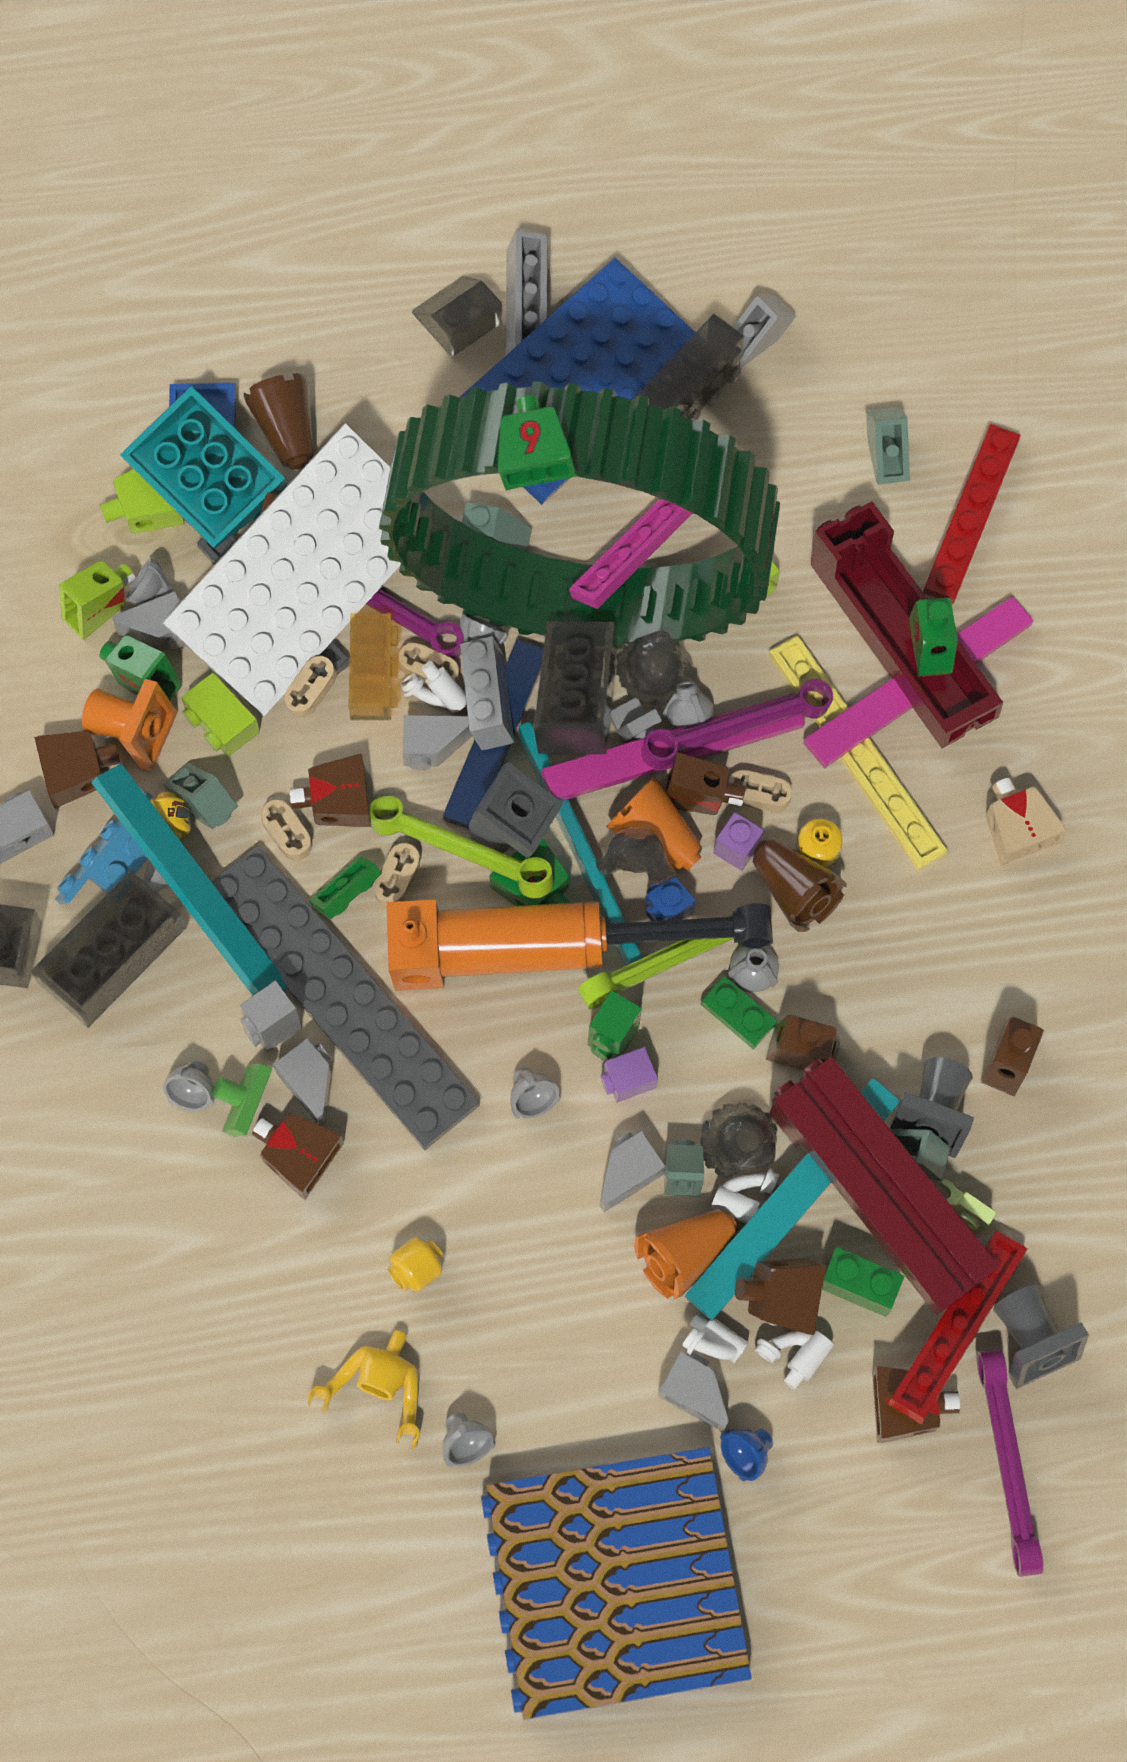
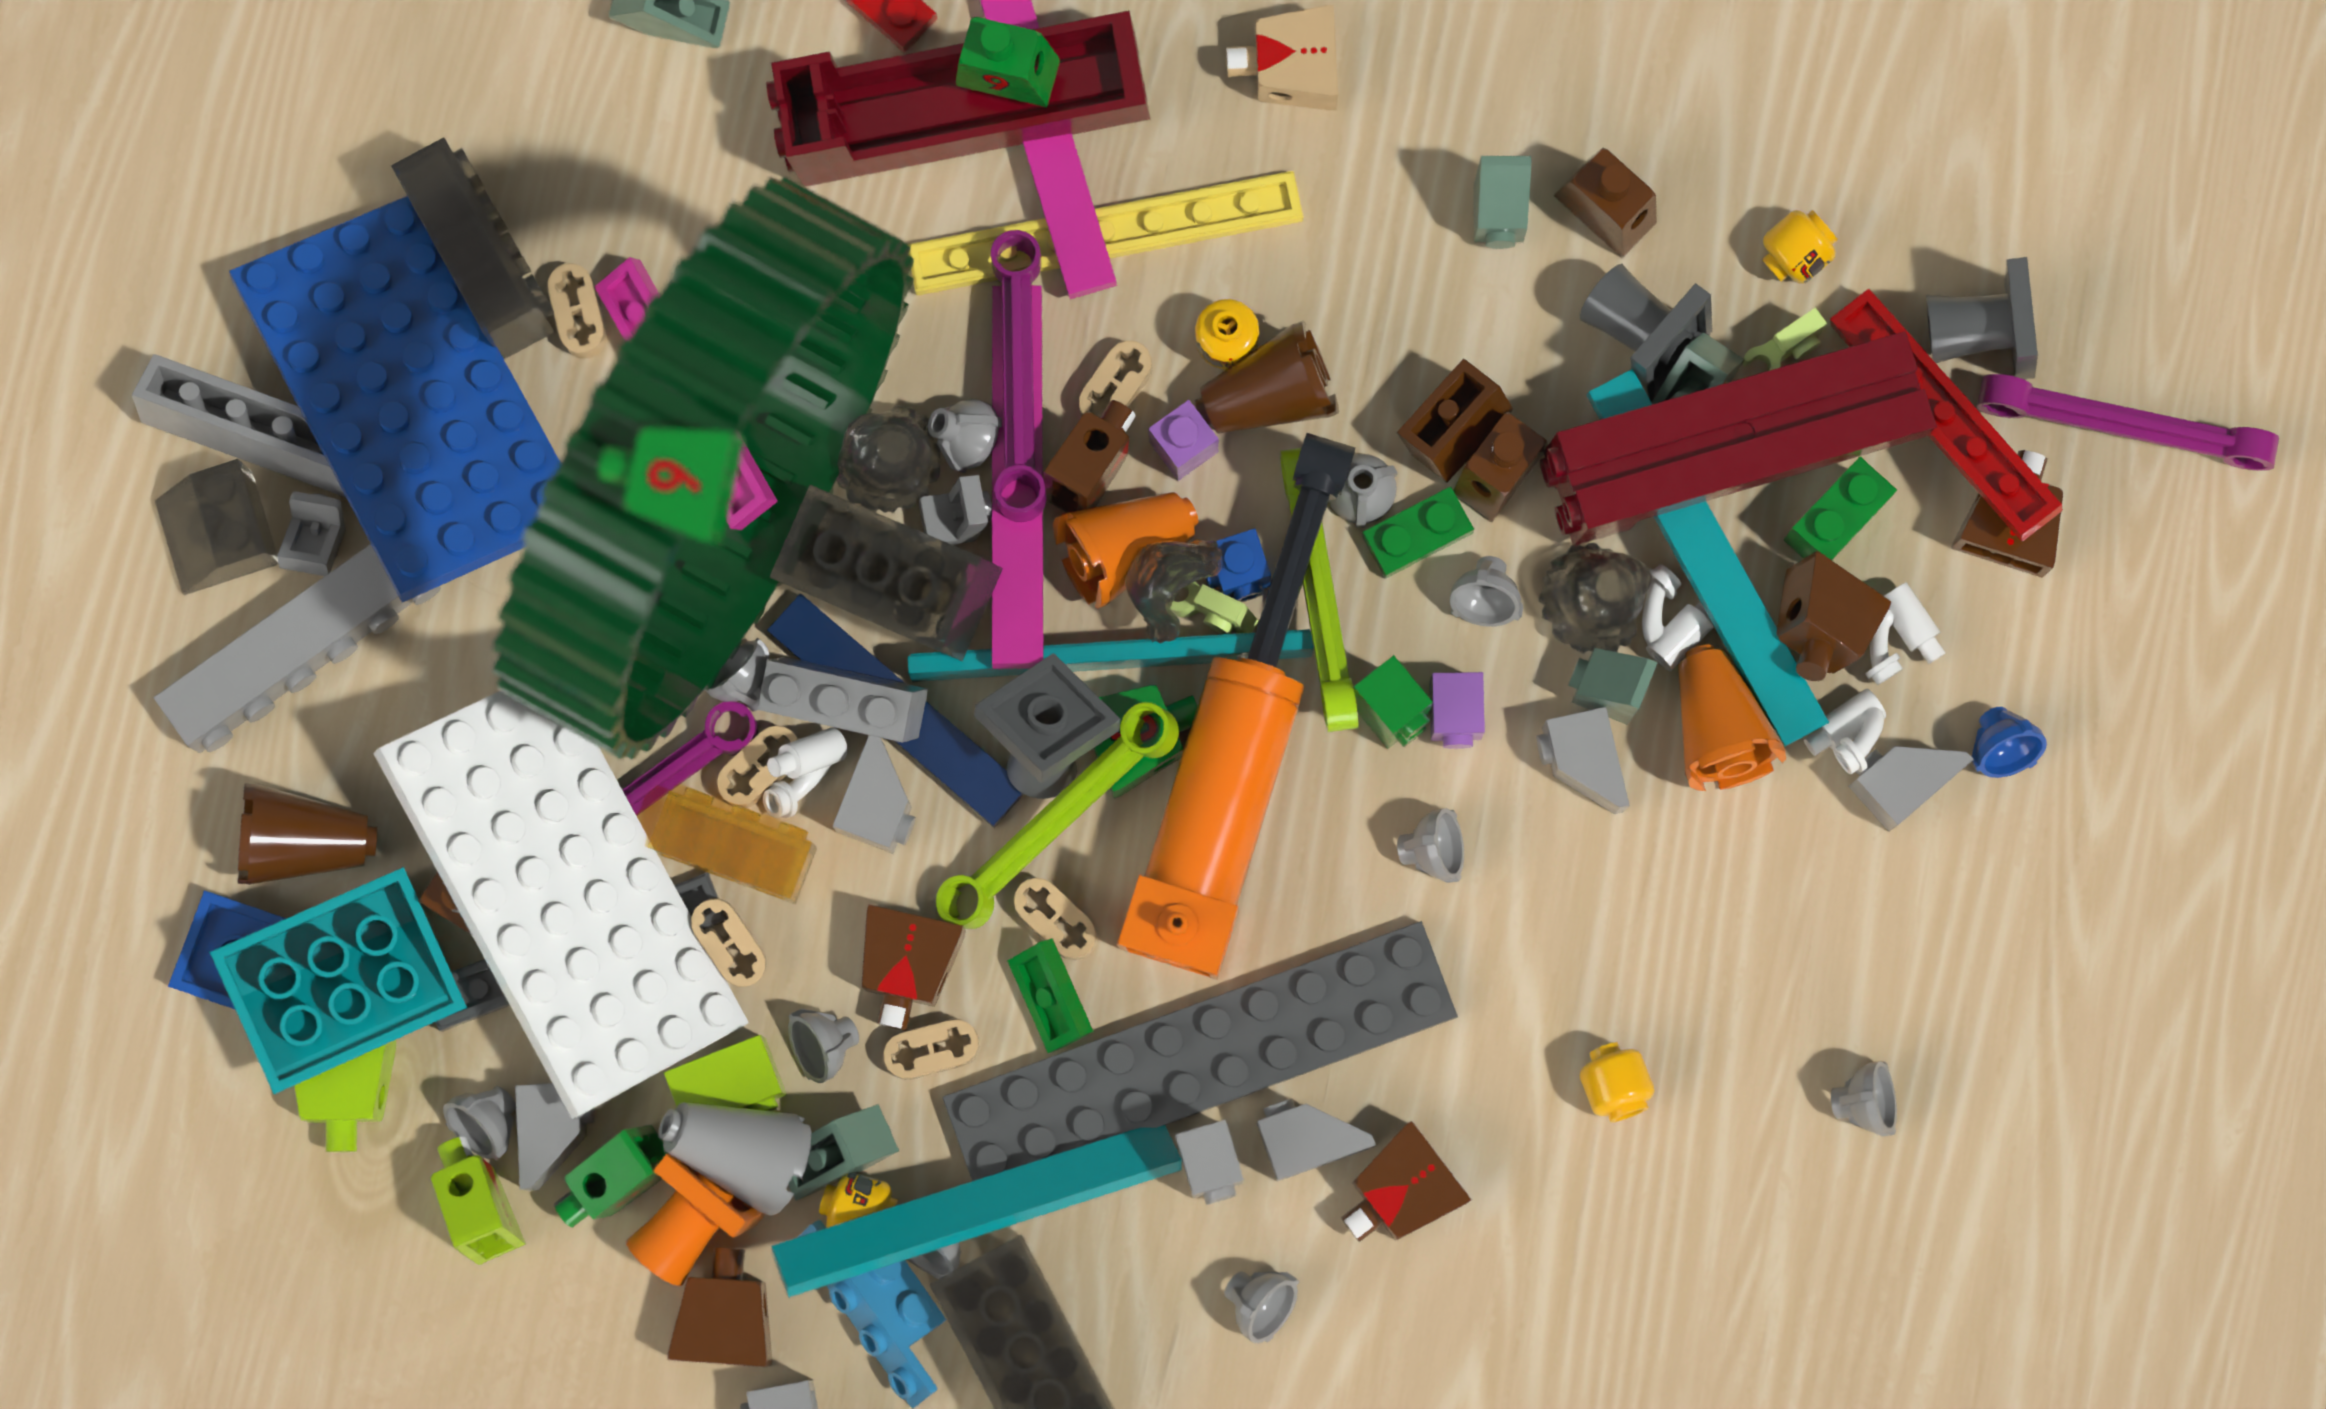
camera: 65 degrees left, 10 degrees up
(178, 727) = (740, 1149): none -> light grey cone
(242, 1097) = (1305, 1237): bright green tile -> none
(267, 761) = (820, 1042): none -> light grey piece
(381, 1375) = (1747, 1179): yellow piece -> none
(384, 365) = (283, 652): none -> light grey brick
(471, 364) = (312, 534): none -> light grey bracket
(615, 1584) = (2115, 973): panel -> none
(634, 903) = (1221, 611): none -> yellowish green plate
(713, 1067) = (1486, 595): none -> light grey piece
(762, 325) = (412, 105): light grey slope -> none
(821, 1001) = (1454, 420): none -> reddish brown brick
(982, 983) = (1502, 200): none -> sand green slope
(1037, 1191) = (1799, 246): none -> yellow head

